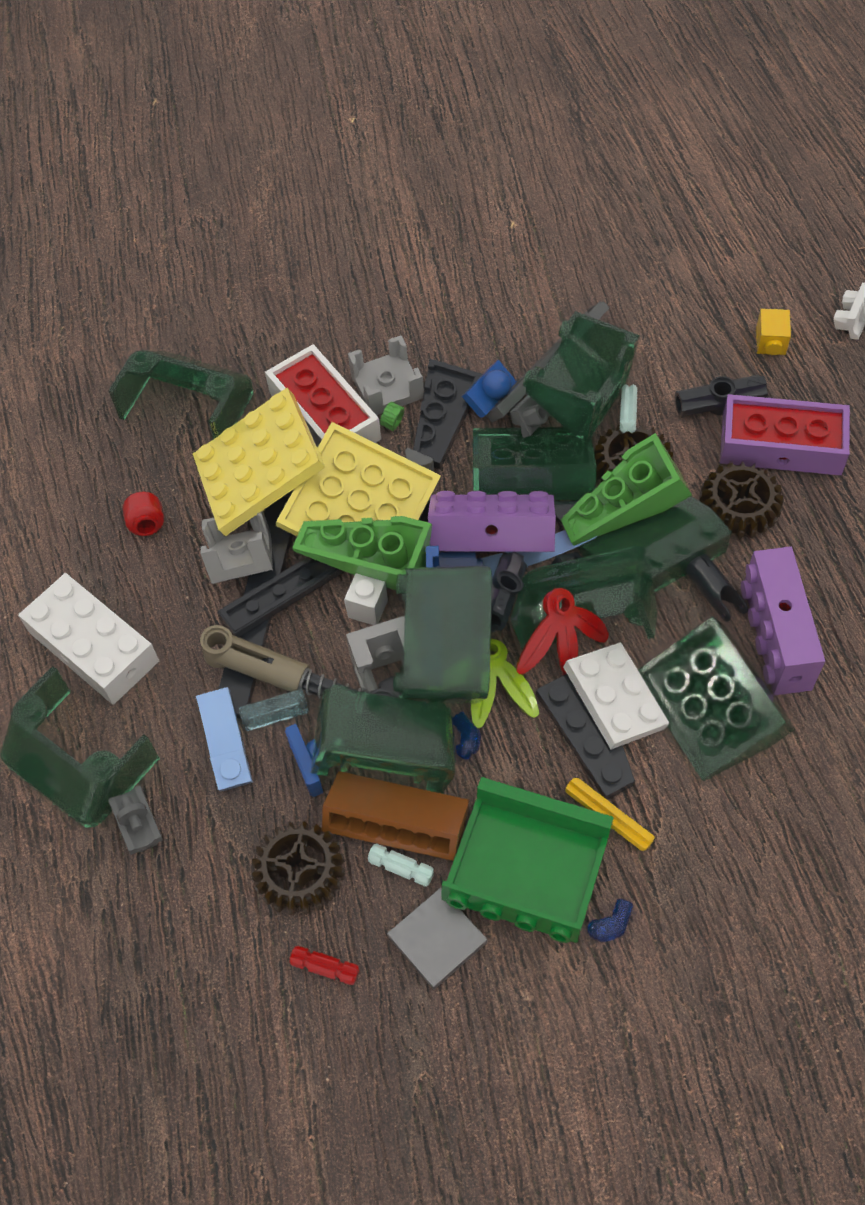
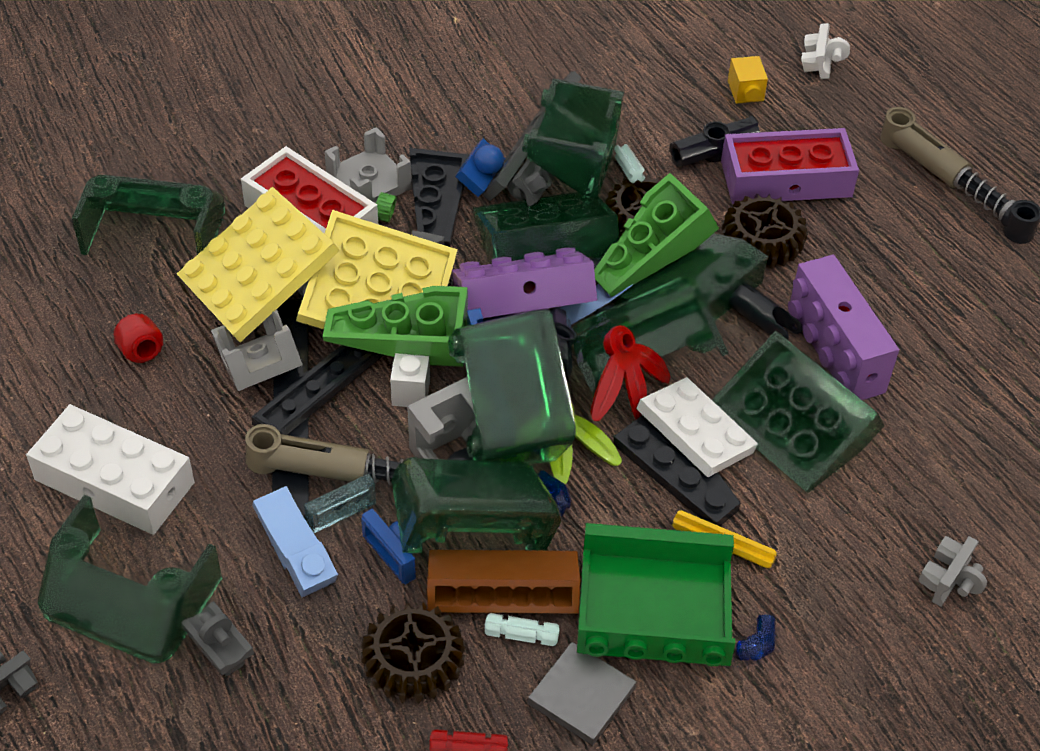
camera: 20 degrees left, 10 degrees down
(826, 881) = (944, 580): none -> light grey hips

